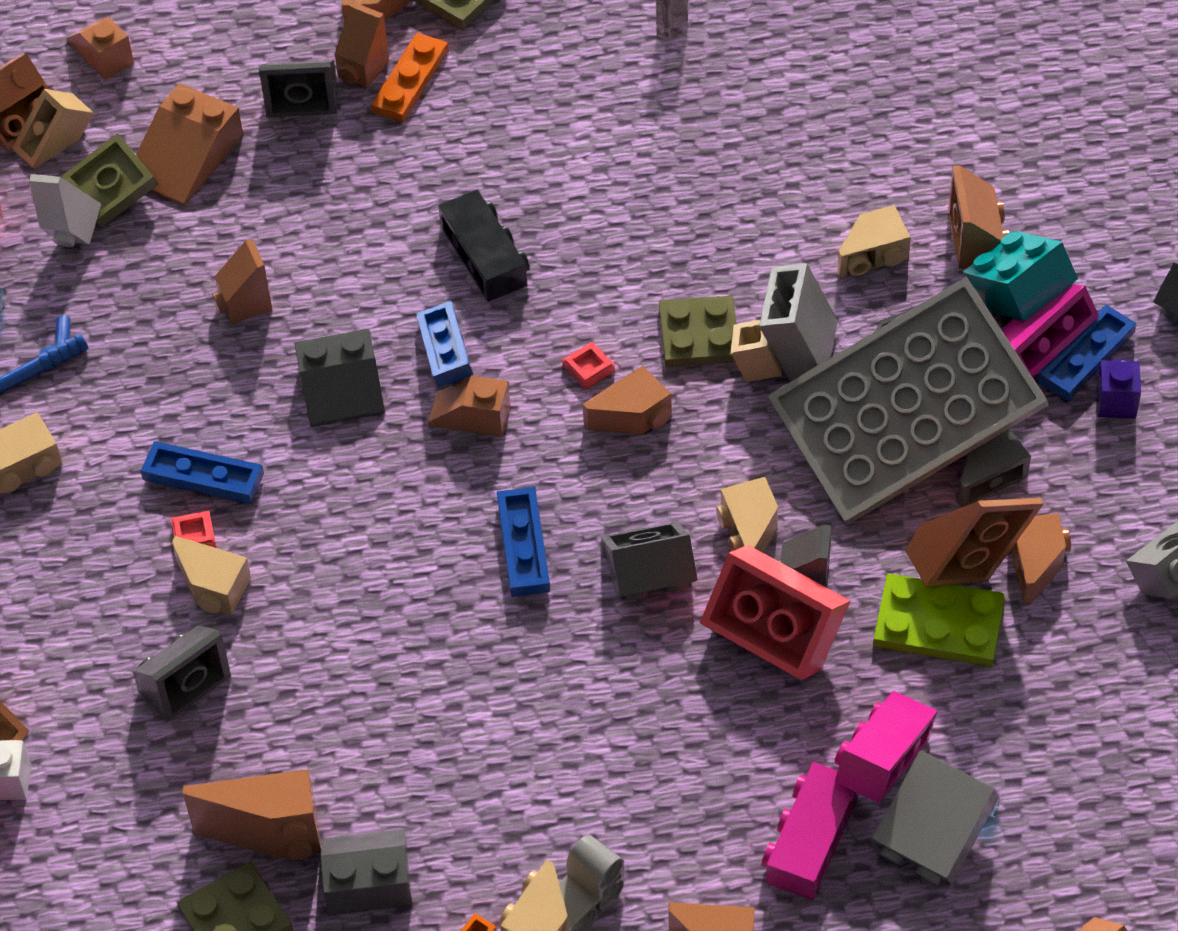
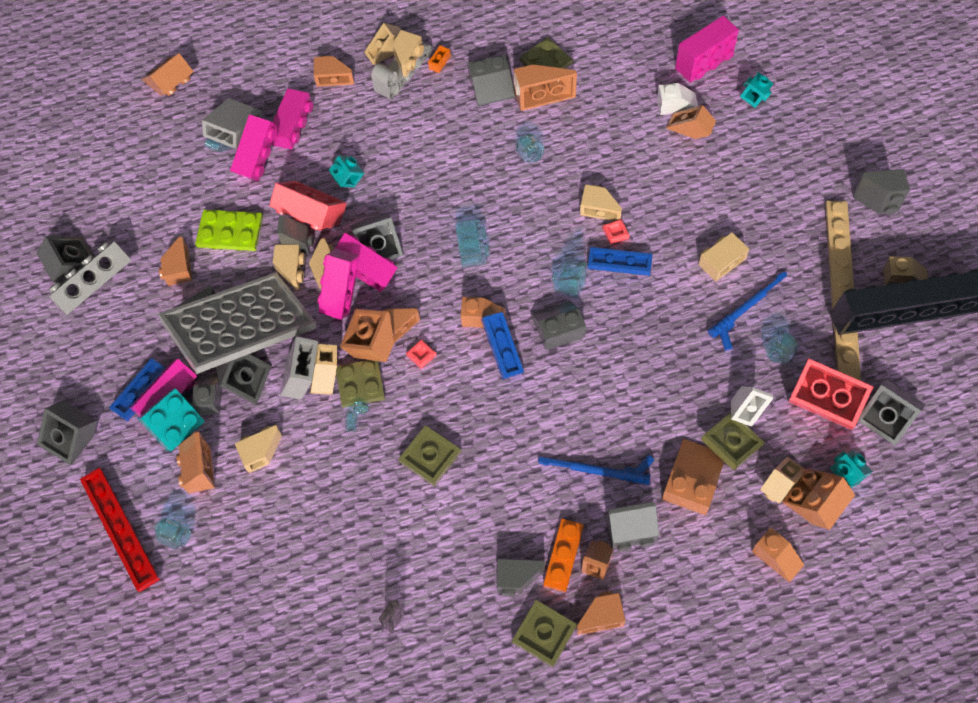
camera: 175 degrees right, 10 degrees up
(183, 671) = (598, 149): dark grey slope -> none
(242, 285) = (626, 369): nougat slope -> none
(284, 162) = (628, 474): none -> blue piece
(299, 432) = (570, 279): none -> clear light blue slope
(316, 702) = (530, 148): none -> clear light blue head
(468, 528) = (470, 243): none -> clear light blue brick
(481, 51) = (517, 575): none -> dark grey slope
(484, 245) = (492, 421): black brick -> none
(523, 541) = (442, 243): blue plate -> none
(593, 211) = (429, 455): none -> olive plate
(675, 494) = (371, 267): none -> dark pink brick
(677, 360) = (369, 335): none -> nougat slope
(696, 690) = (346, 171): none -> teal brick
(712, 284) = (352, 414): none -> clear light blue arm
(722, 445) = (337, 283): none -> brick
(817, 509) = (288, 264): none -> tan slope
(970, 540) = (205, 244): nougat slope -> none
(1008, 143) = (172, 532): none -> clear light blue head
(1098, 164) = (119, 530): none -> red plate
(1118, 389) = (123, 362): dark purple brick -> none

